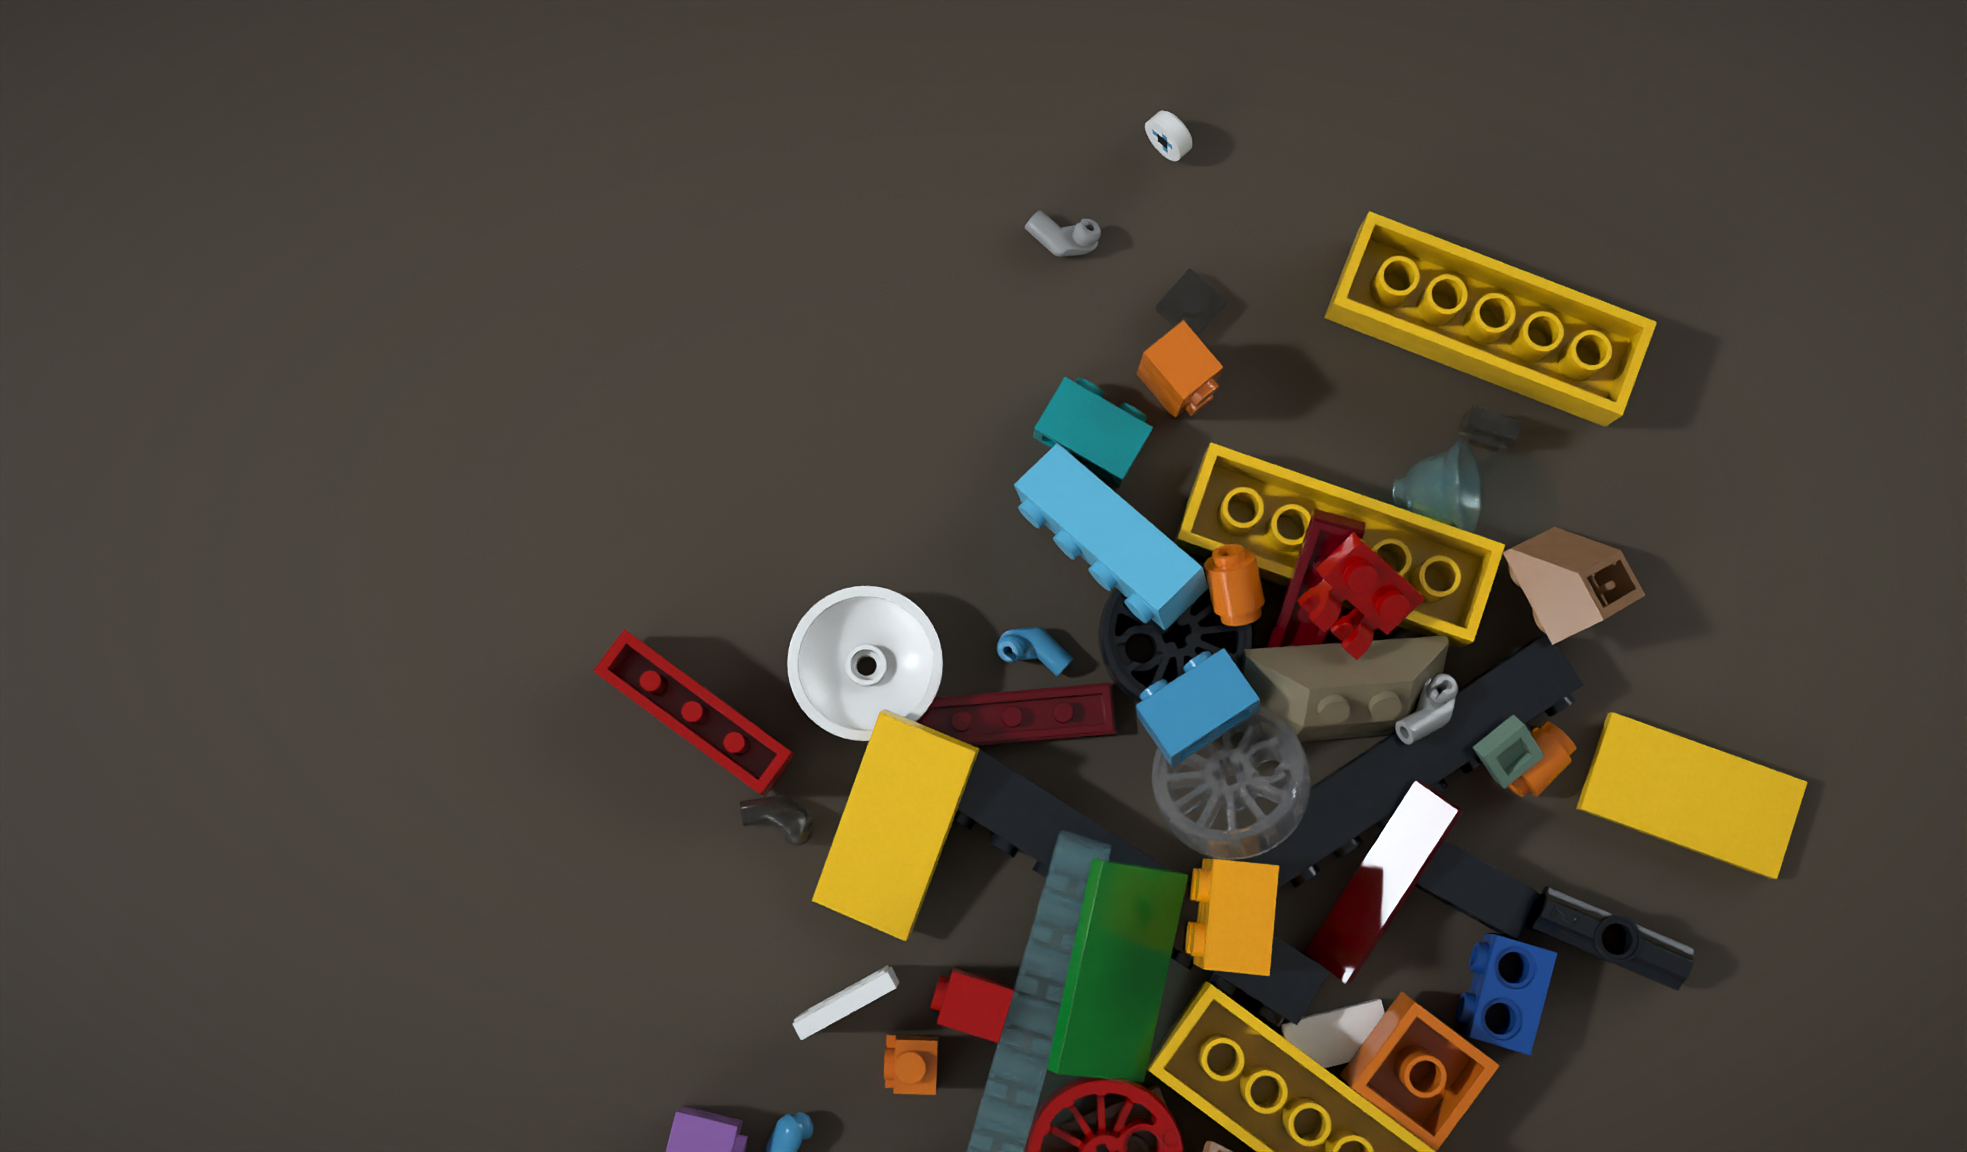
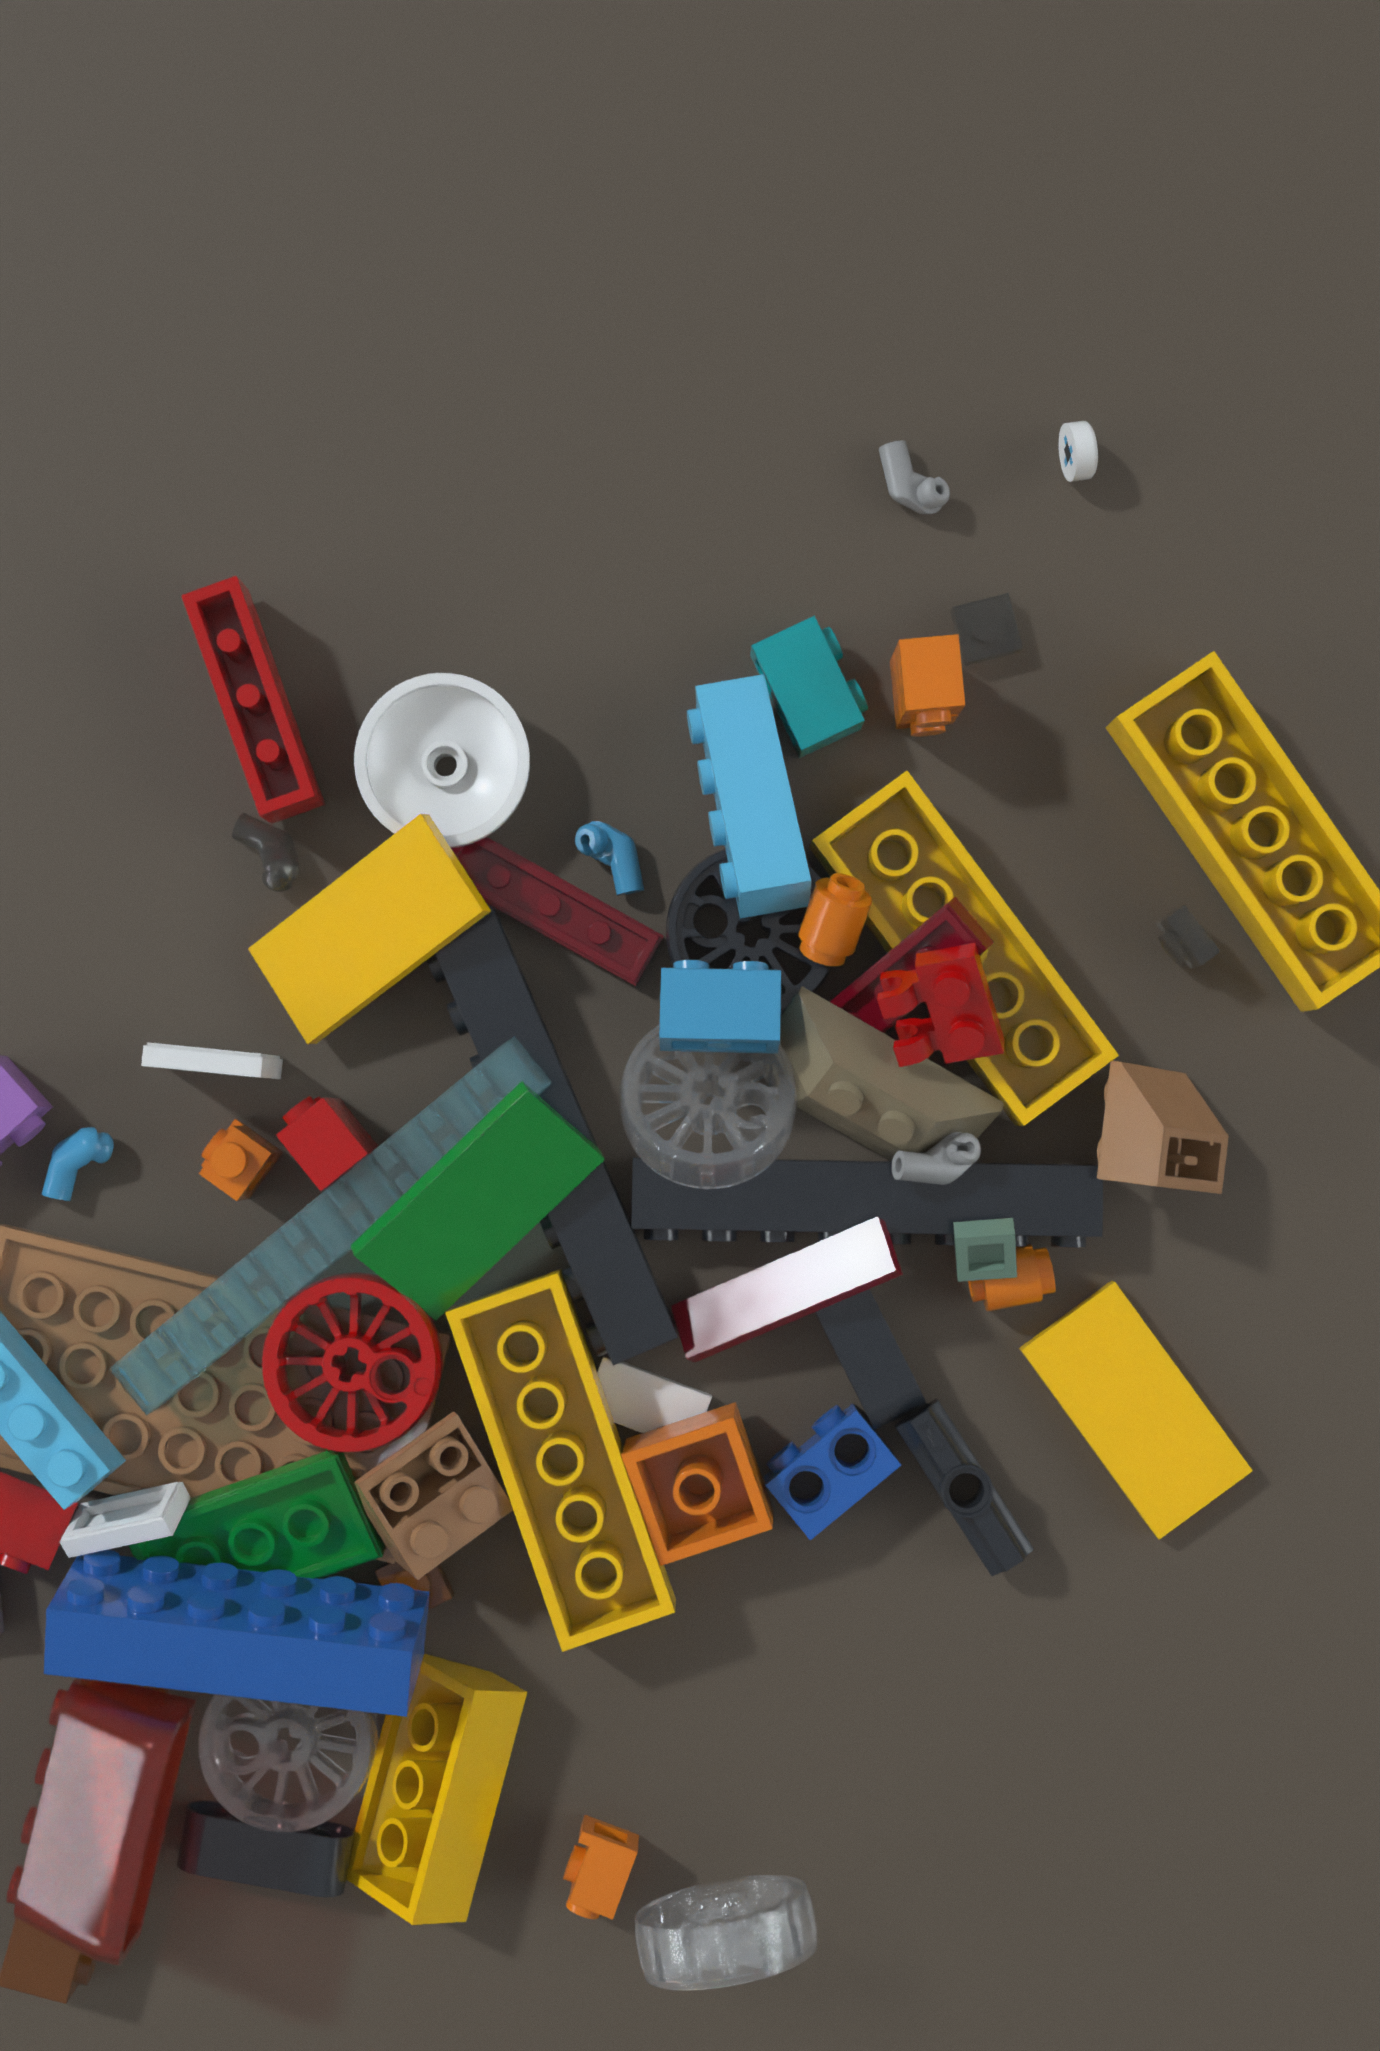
camera: 40 degrees right, 5 degrees up
(1233, 916) = (616, 1225): light orange brick -> none
(1443, 488) = (1103, 965): clear light blue hat -> none

